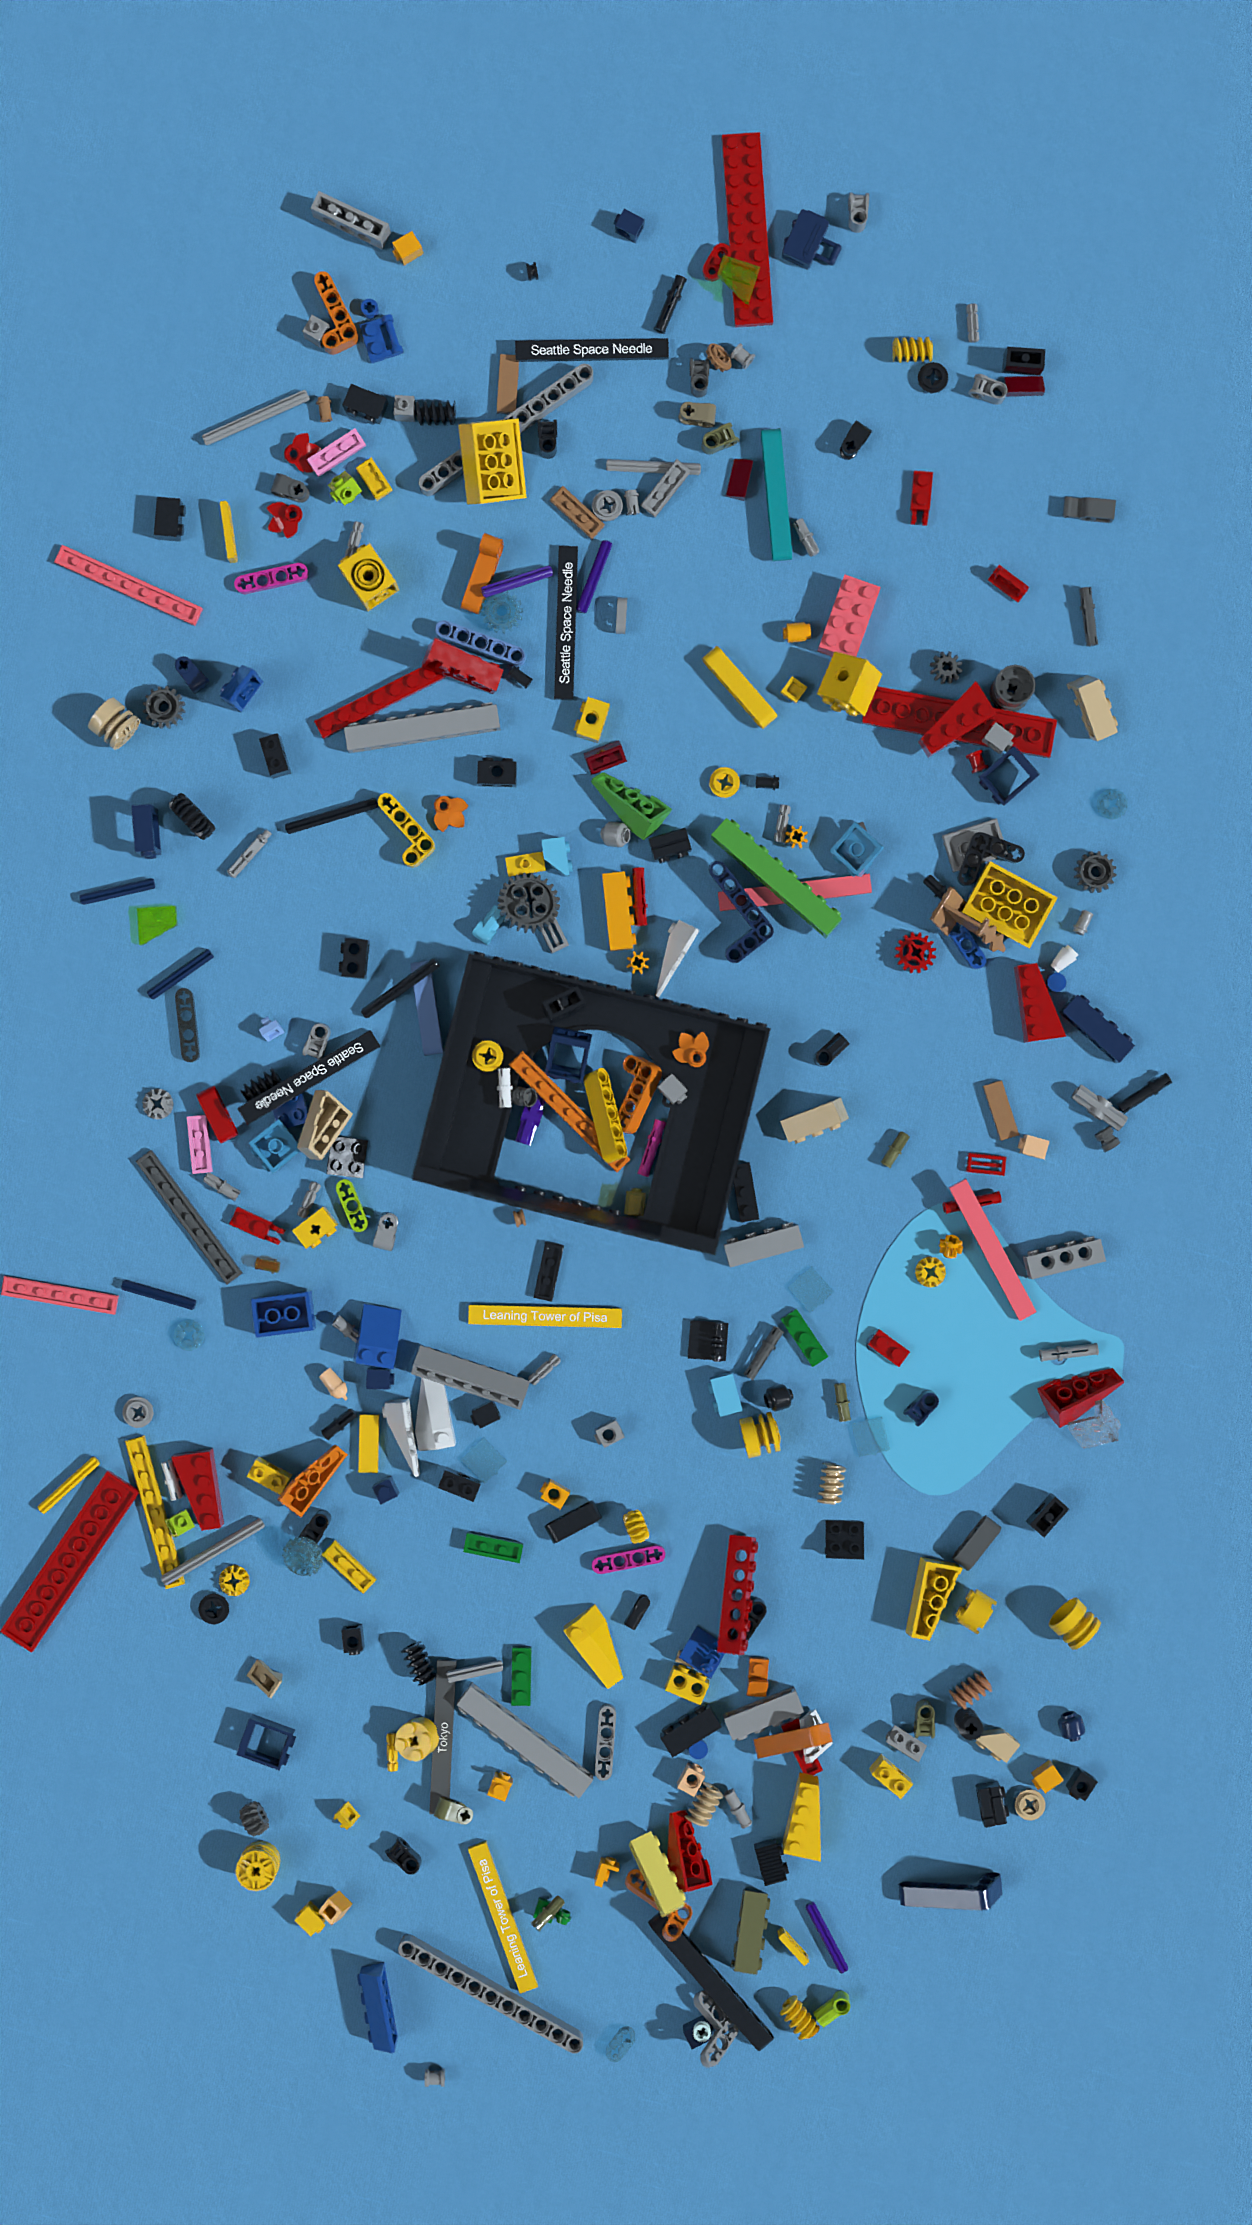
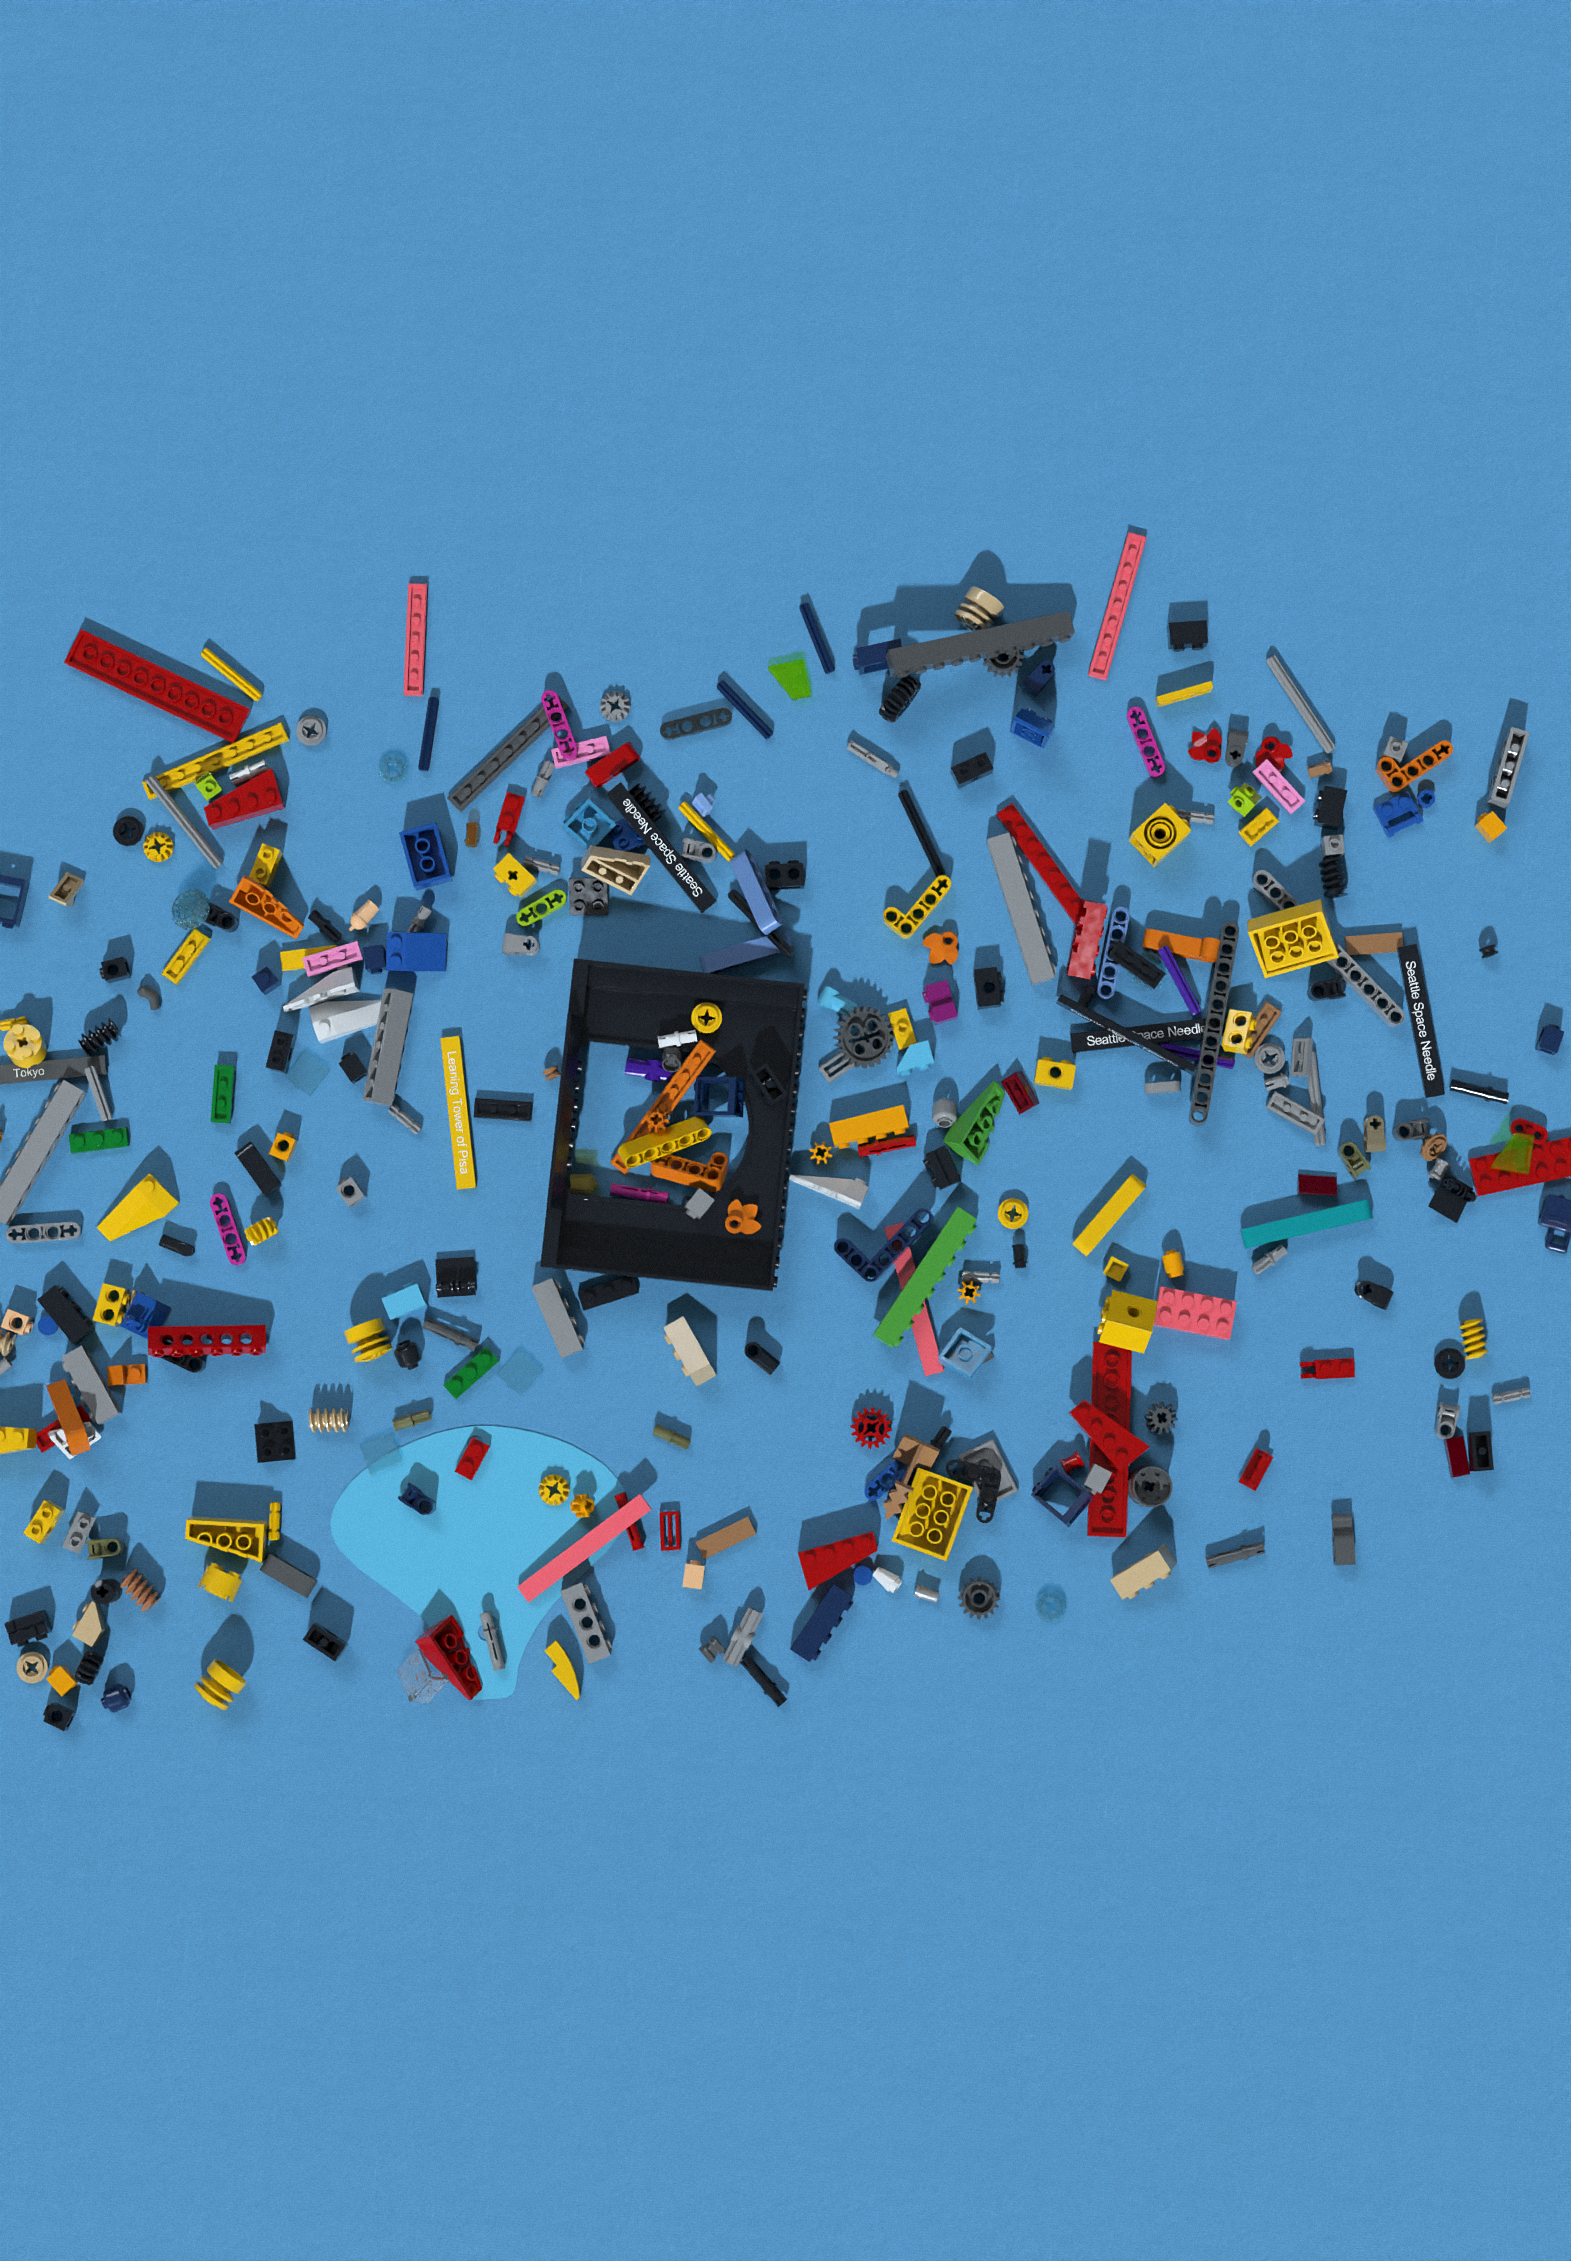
camera: 90 degrees right, 5 degrees down
(148, 726) = (980, 644): none -> dark grey brick
(169, 1162) = (559, 725): none -> dark pink beam
(298, 1029) = (707, 831): none -> yellow axle
(368, 988) = (756, 892): none -> medium blue beam
(373, 1420) = (332, 958): none -> bright pink plate
(382, 1606) = (151, 995): none -> dark grey arm
(496, 621) = (1136, 964): none -> black tile
(504, 822) = (940, 1002): none -> magenta brick
(564, 641) = (1126, 1034): none -> black tile
(573, 560) = (1211, 1032): none -> dark grey beam
(576, 536) = (1233, 1031): none -> yellow brick
(588, 1116) = (661, 1124): none -> orange gear
(611, 470) = (1302, 1058): none -> light grey tile
(771, 347) = (1451, 1197): none -> black hinge
(920, 1549) = (274, 1521): none -> yellow axle
(1039, 1749) = (89, 1668): none -> black gear
(1105, 1285) = (564, 1670): none -> yellow slope

